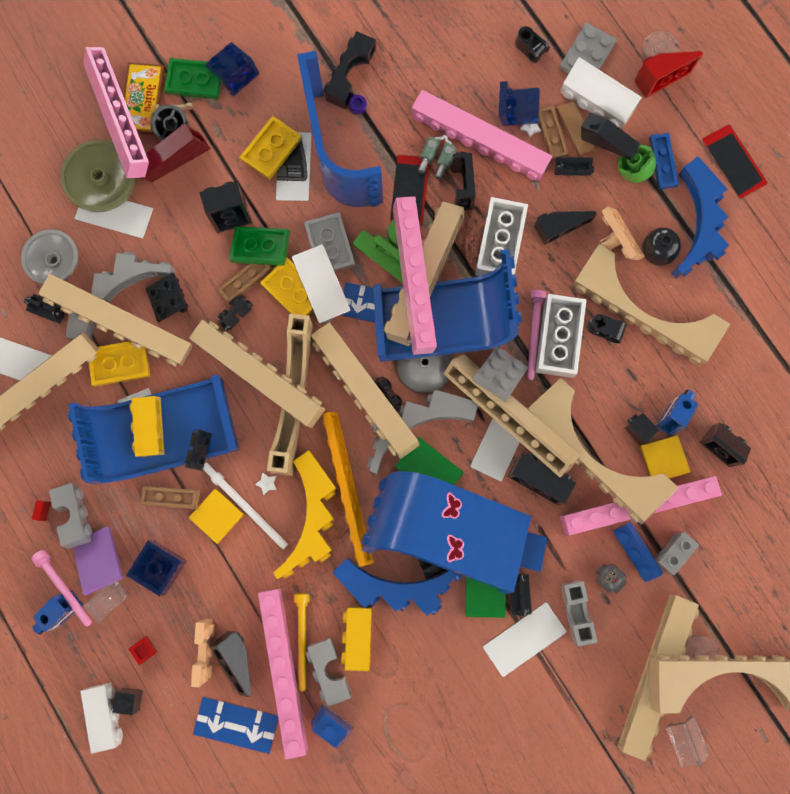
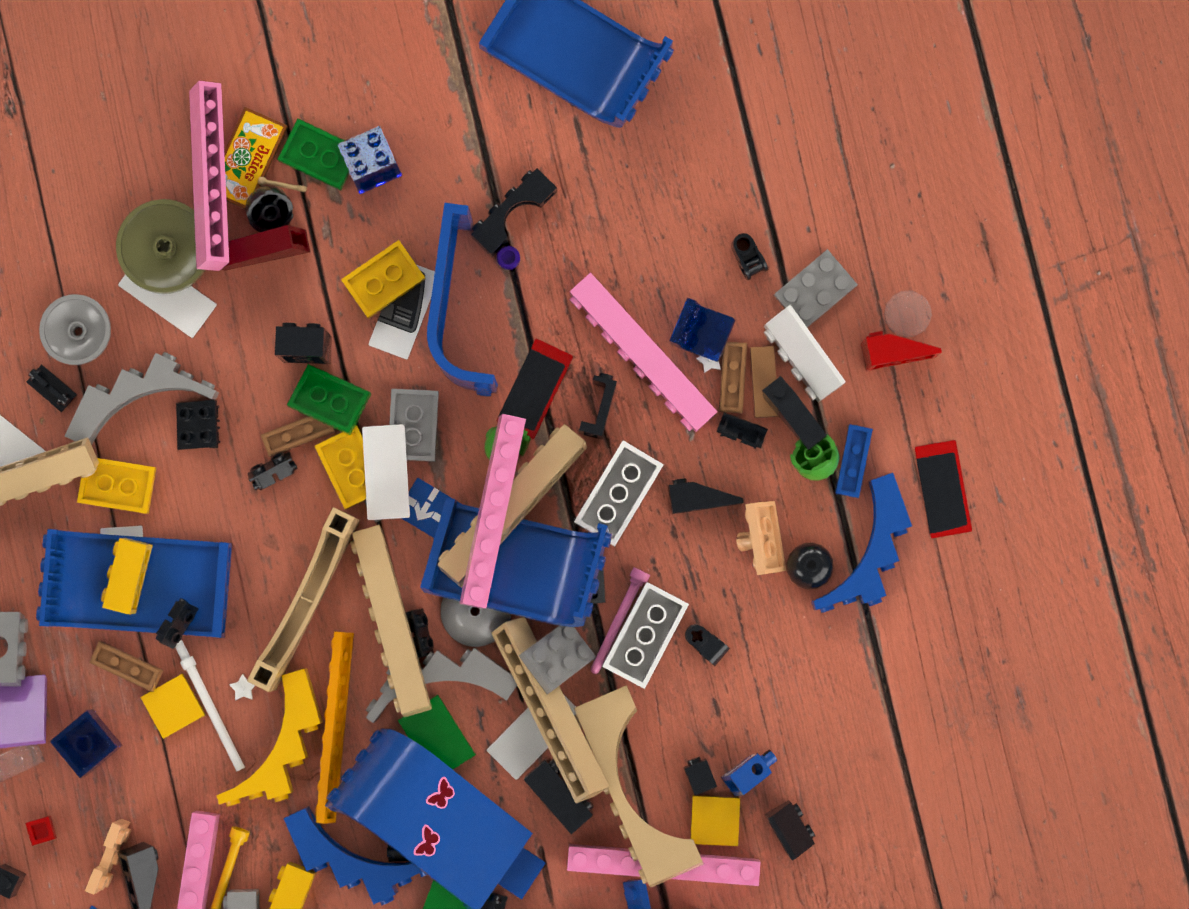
camera: 15 degrees right, 5 degrees up
(115, 320) = (129, 437): tan brick -> none
(257, 373) = (274, 557): tan brick -> none
(381, 252) = (468, 455): bright green bracket -> none
(429, 151) = (591, 364): sand green piece -> none
(693, 339) = (802, 692): tan arch -> none

